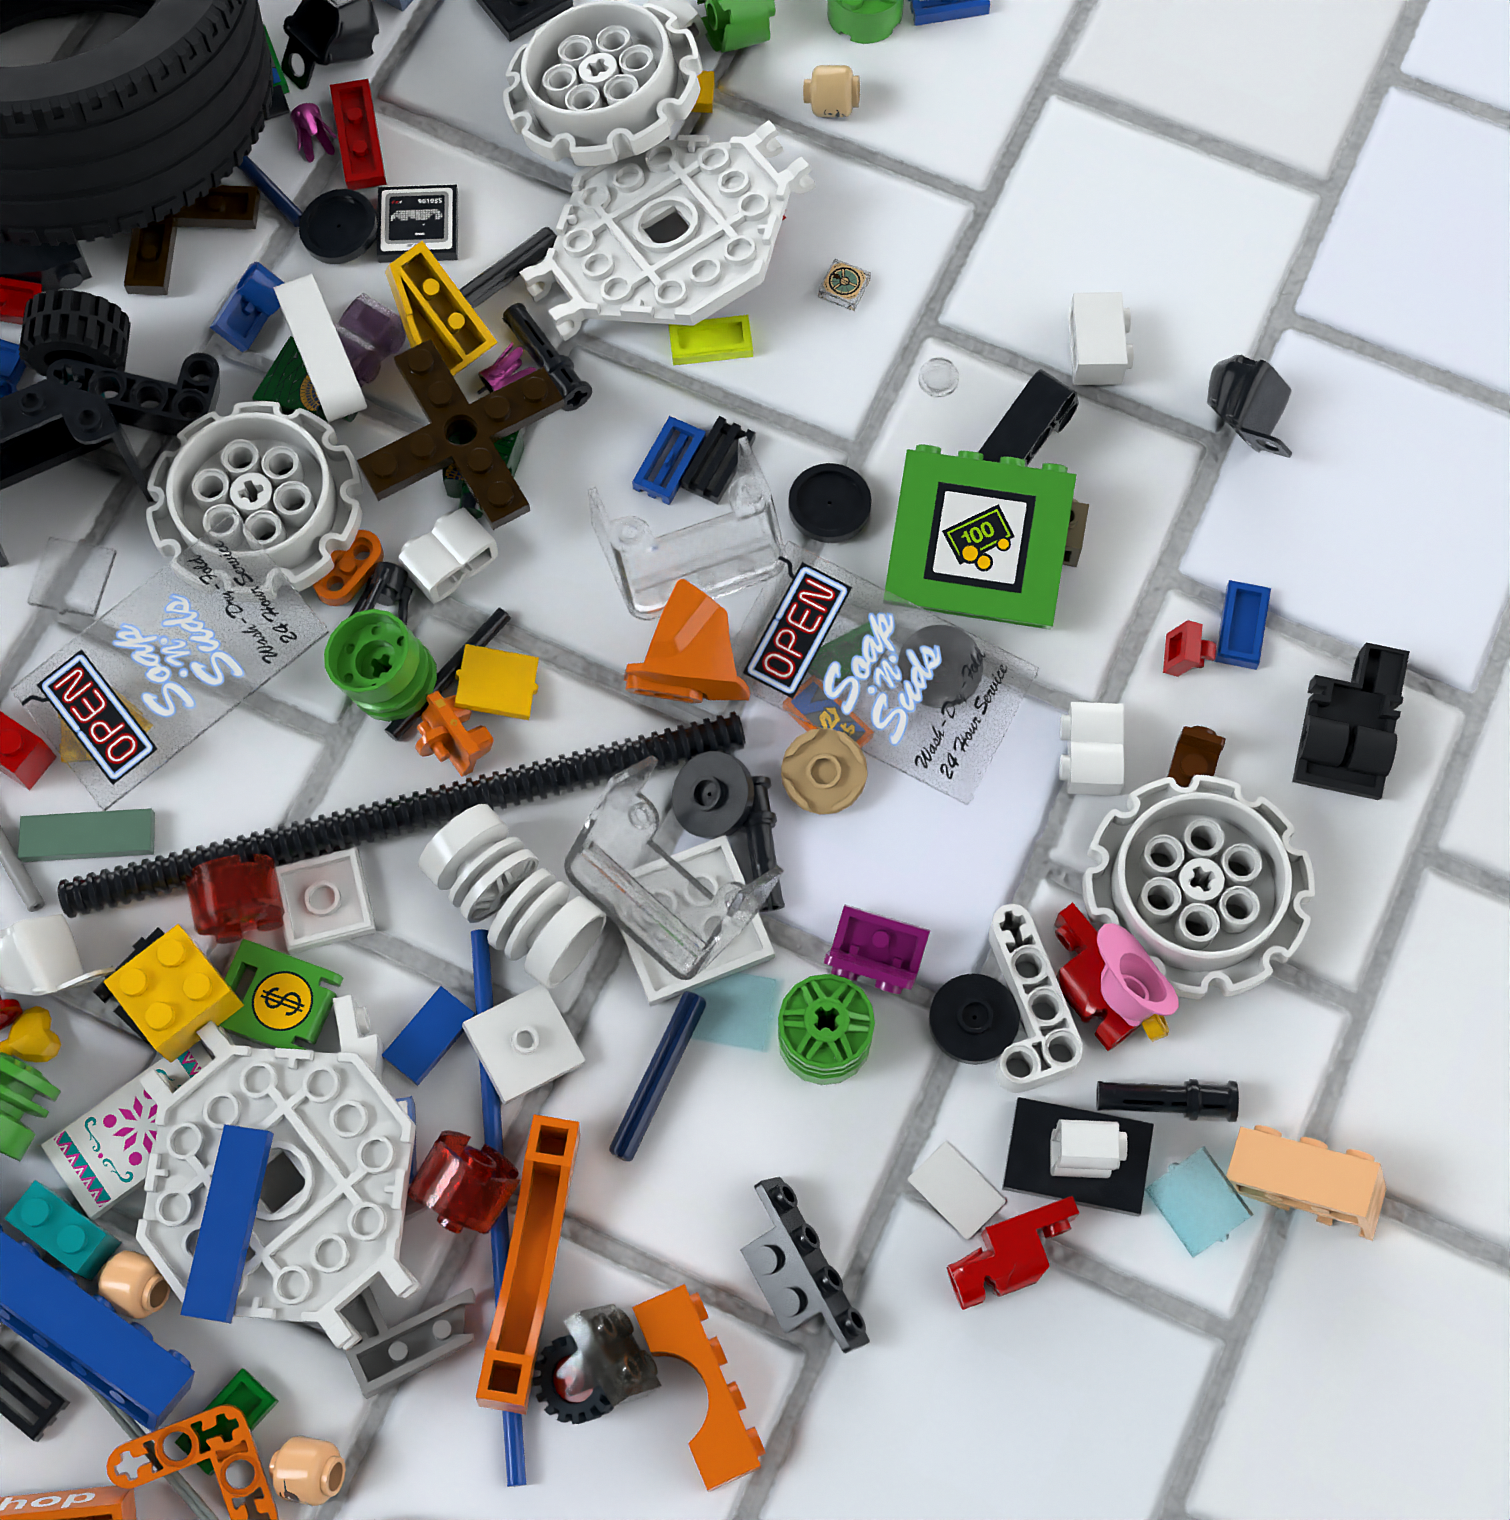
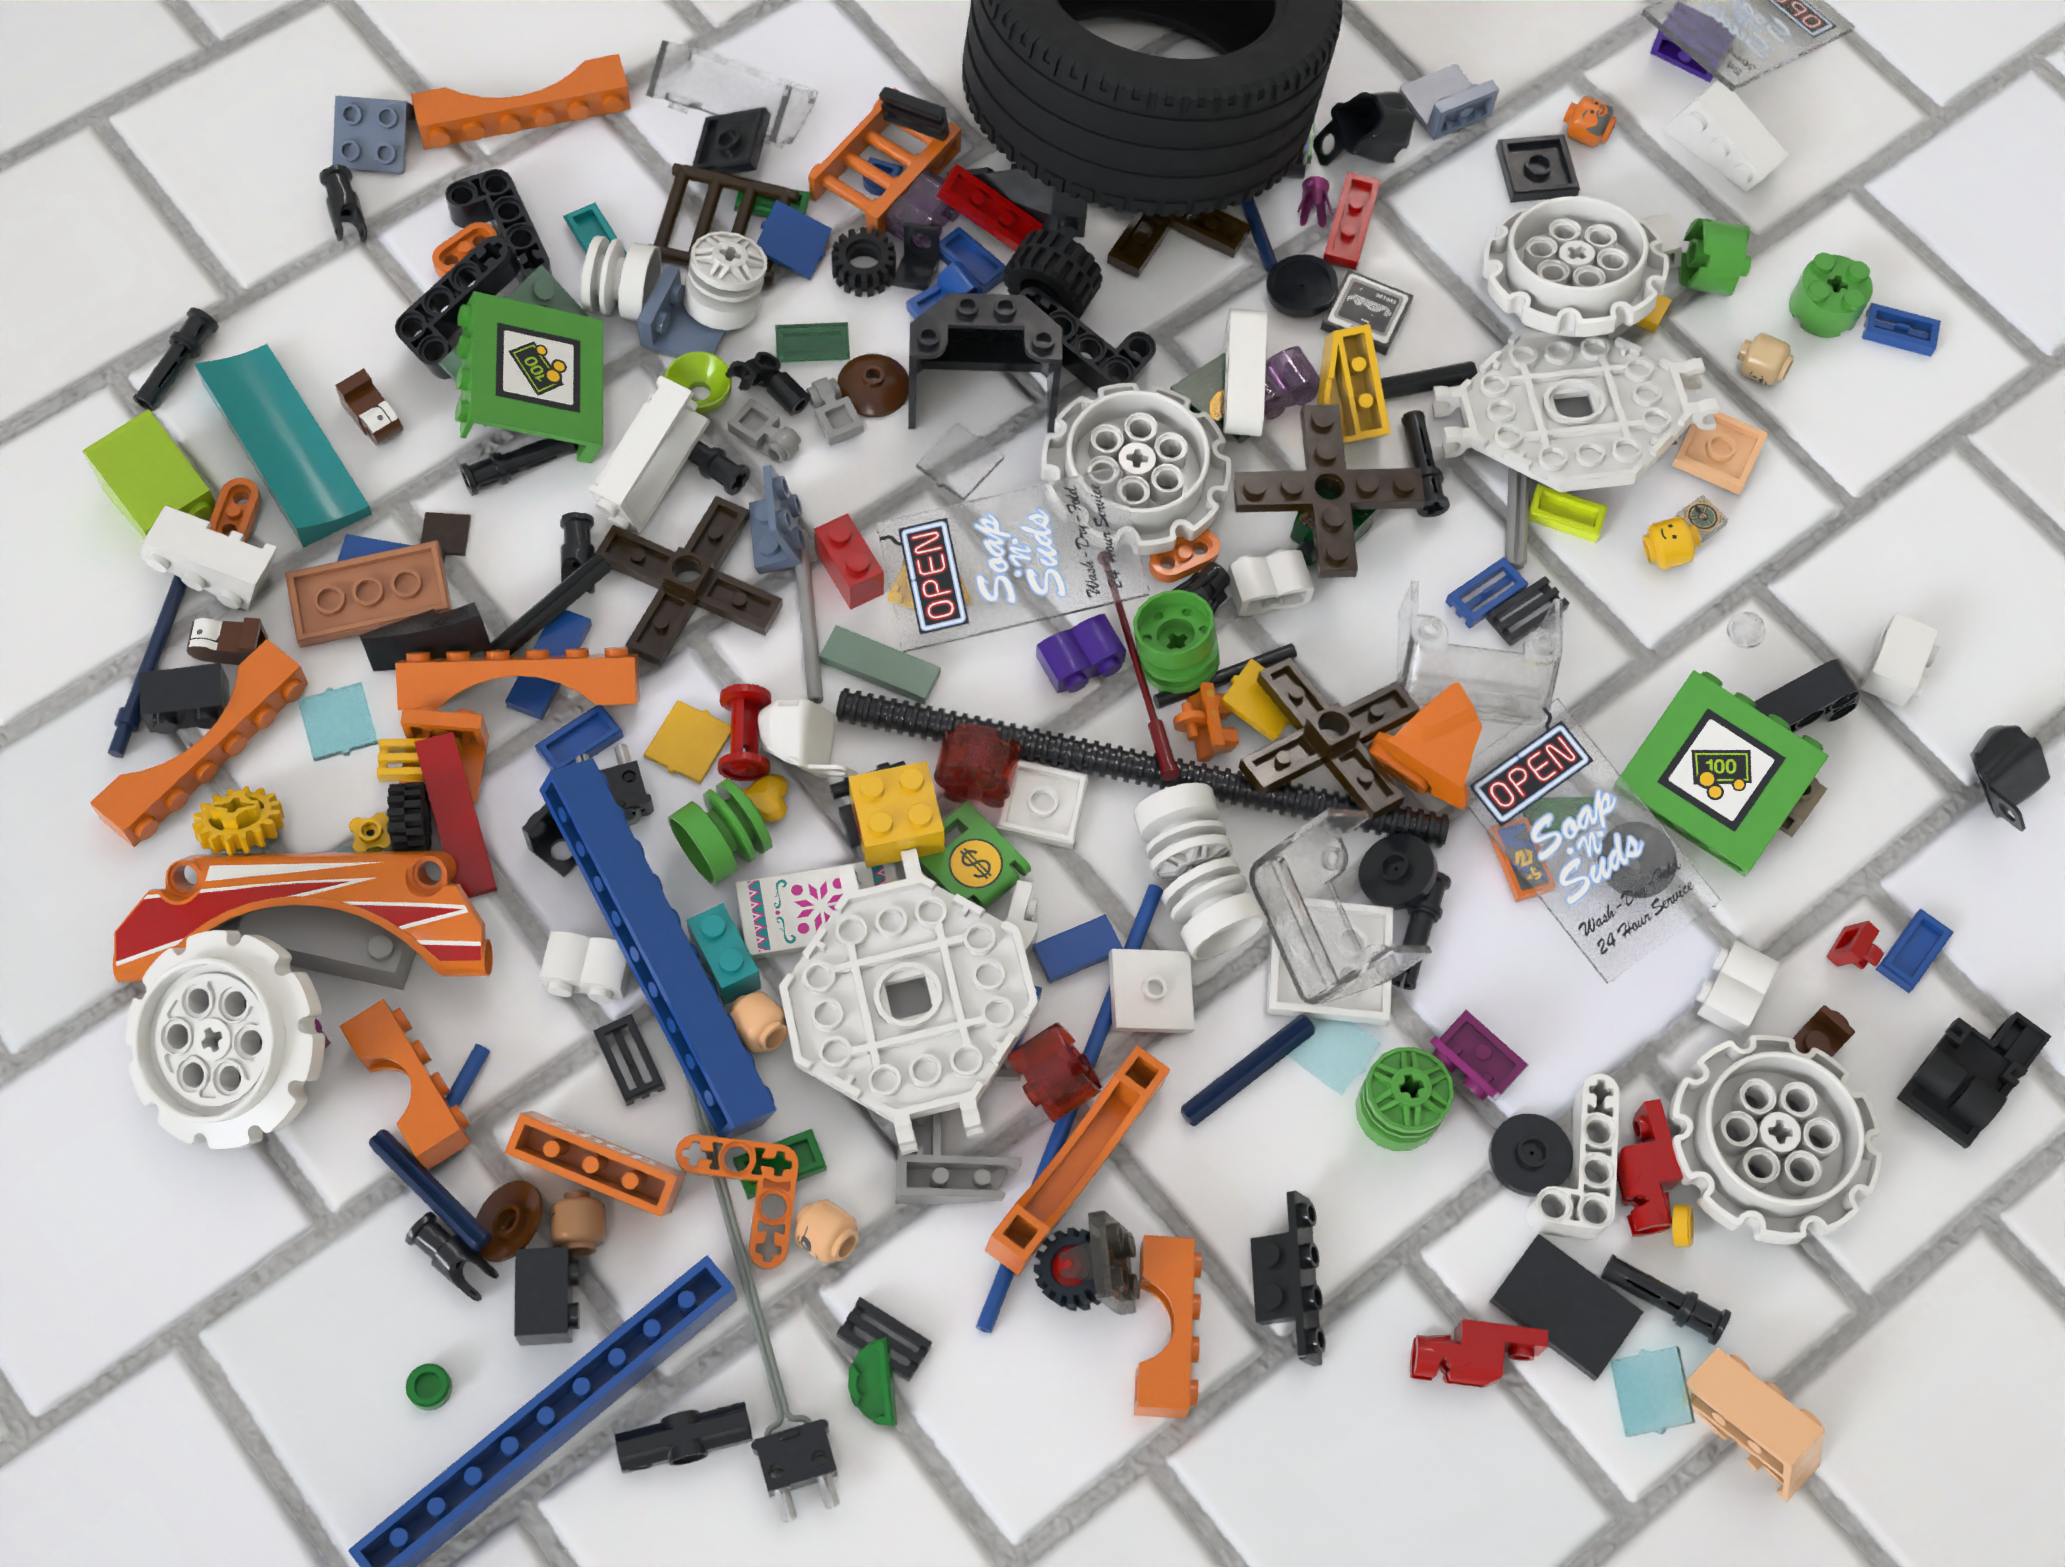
camera: 20 degrees right, 5 degrees down
(227, 1224) = (857, 1008): blue tile -> none
(248, 307) = (1199, 315): blue plate -> none
(290, 723) = (1081, 654): none -> dark purple brick
(402, 767) = (1169, 769): none -> dark red piece
(502, 370) = (1383, 458): flat silver piece -> none
(567, 712) = (1312, 748): none -> dark brown piece
(665, 371) = (1517, 519): none -> light grey axle
(824, 771) = (1499, 897): tan tile -> none
(826, 323) = (1671, 542): none -> yellow head
(828, 485) = (1605, 687): black piece -> none
(834, 209) = (1721, 454): none -> light nougat plate
(956, 1190) = (1450, 1283): white sticker -> none
(1086, 1148) = (1579, 1297): white brick -> none
(1131, 979) = (1681, 1181): bright pink piece -> none

